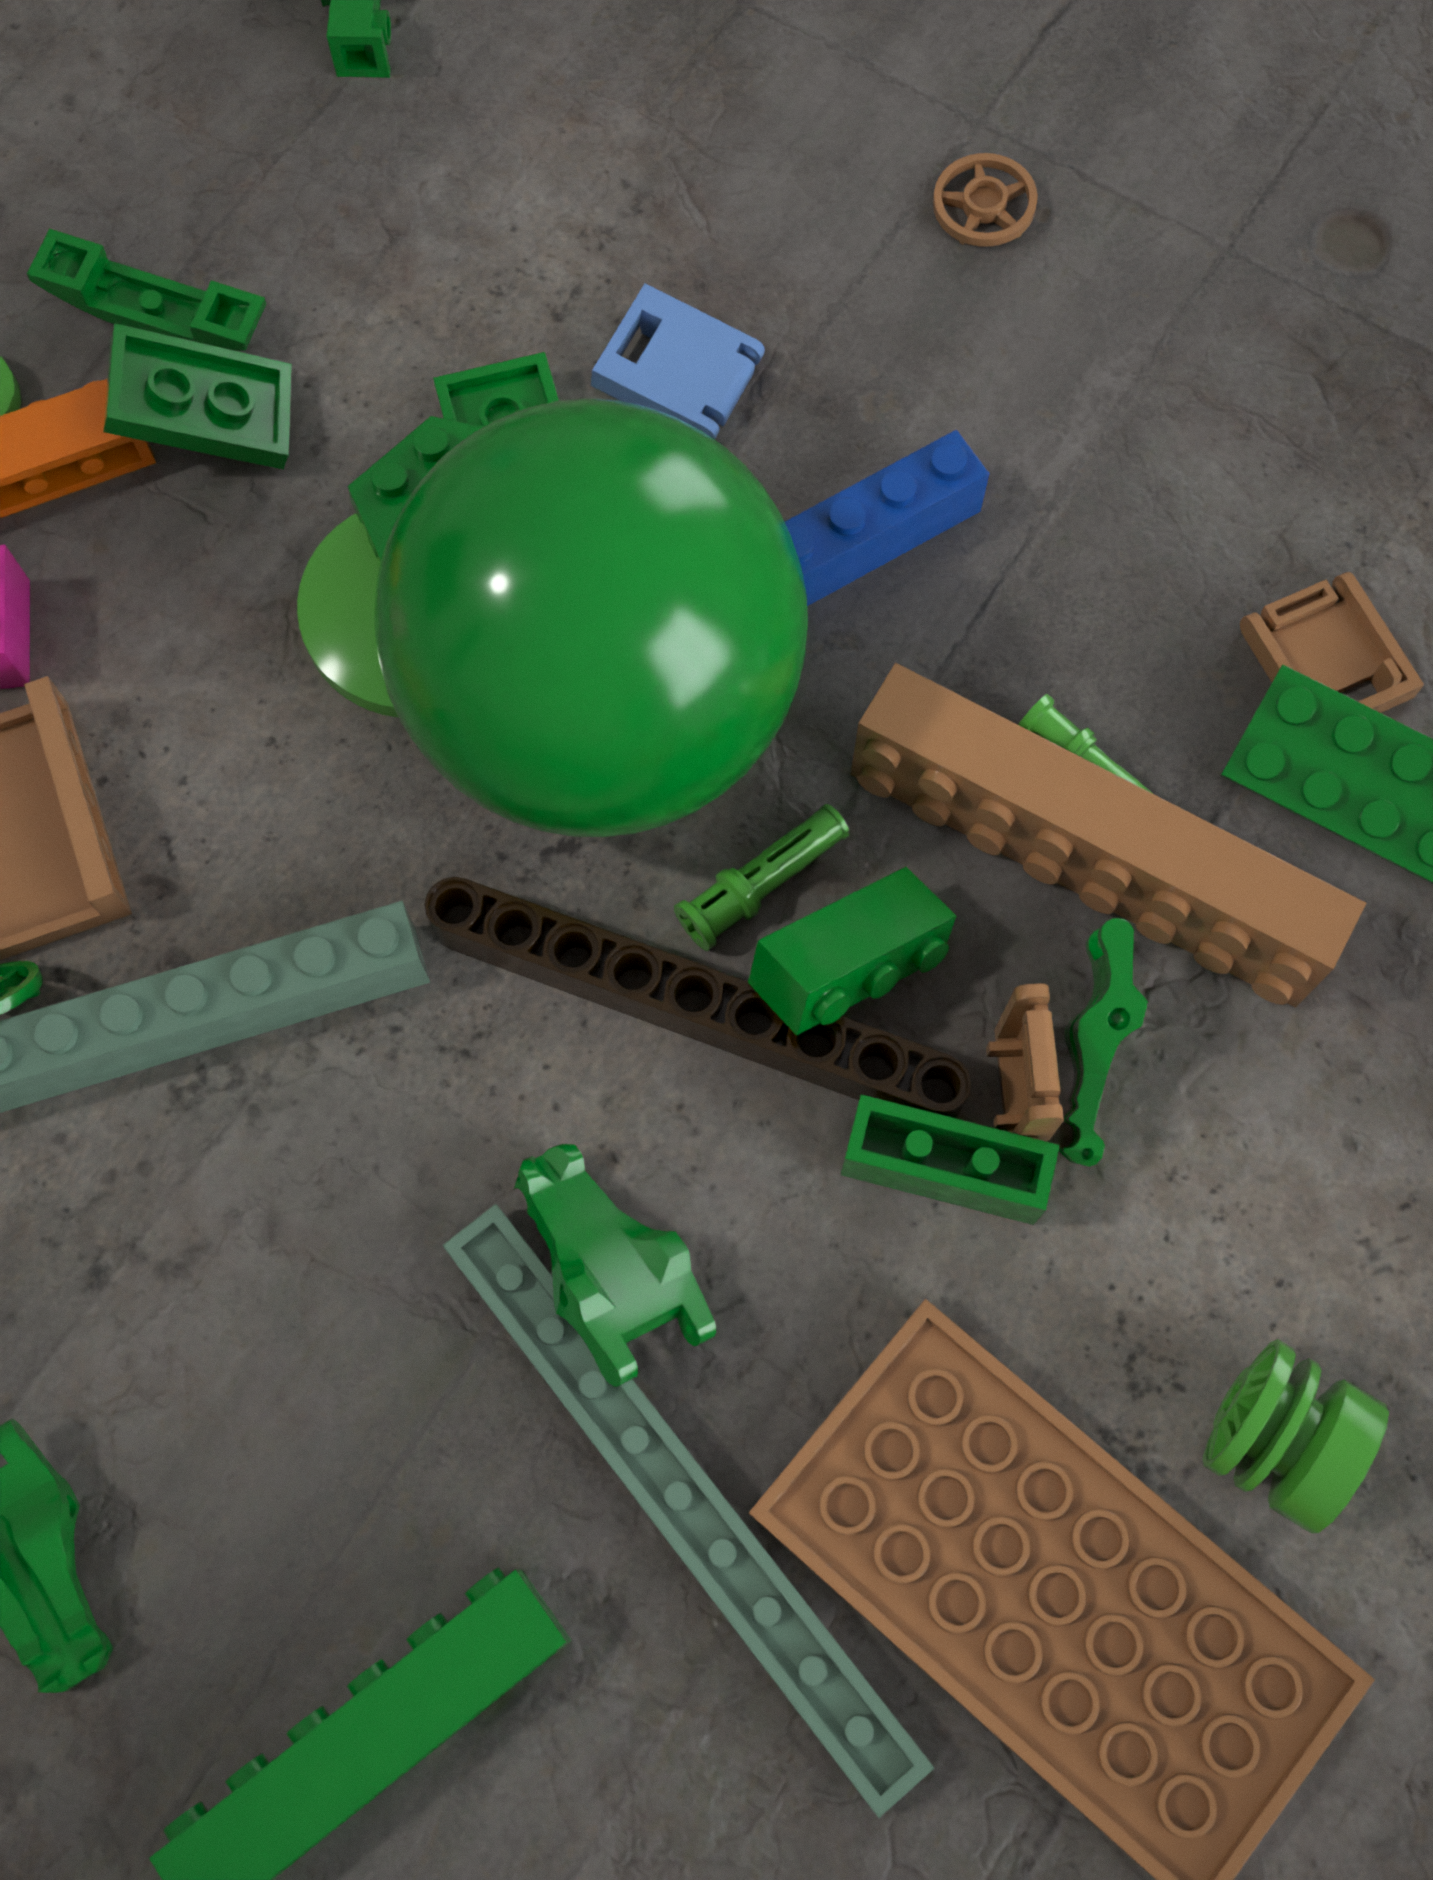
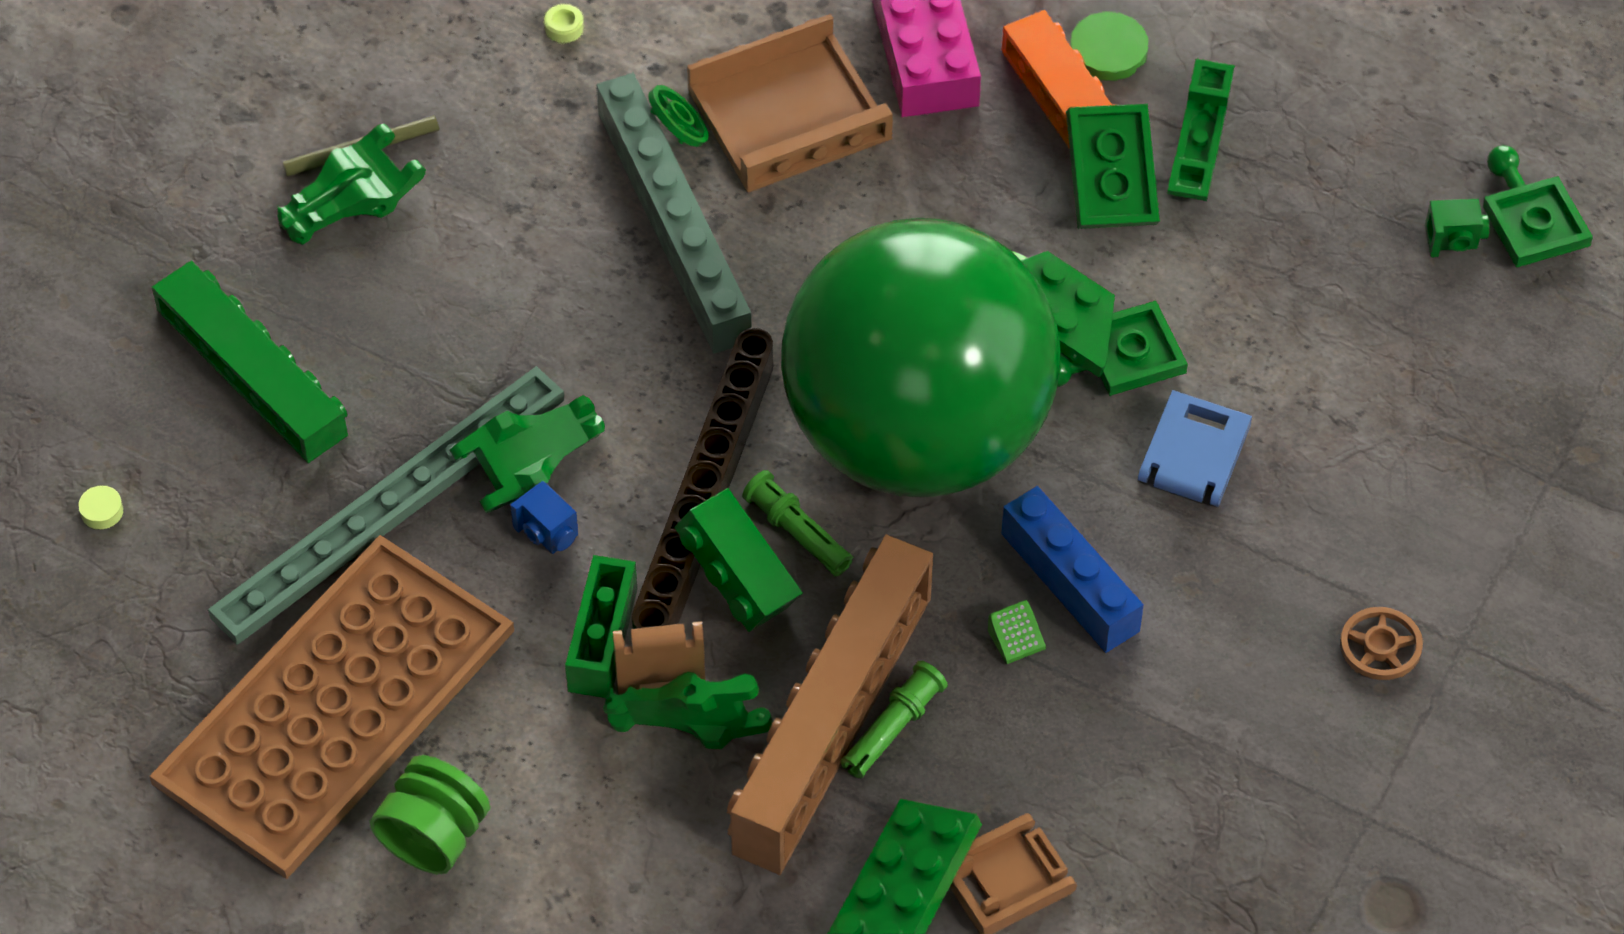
camera: 85 degrees right, 15 degrees down
(735, 1240) = (545, 518): none -> blue brick
(956, 609) = (1015, 632): none -> bright green slope

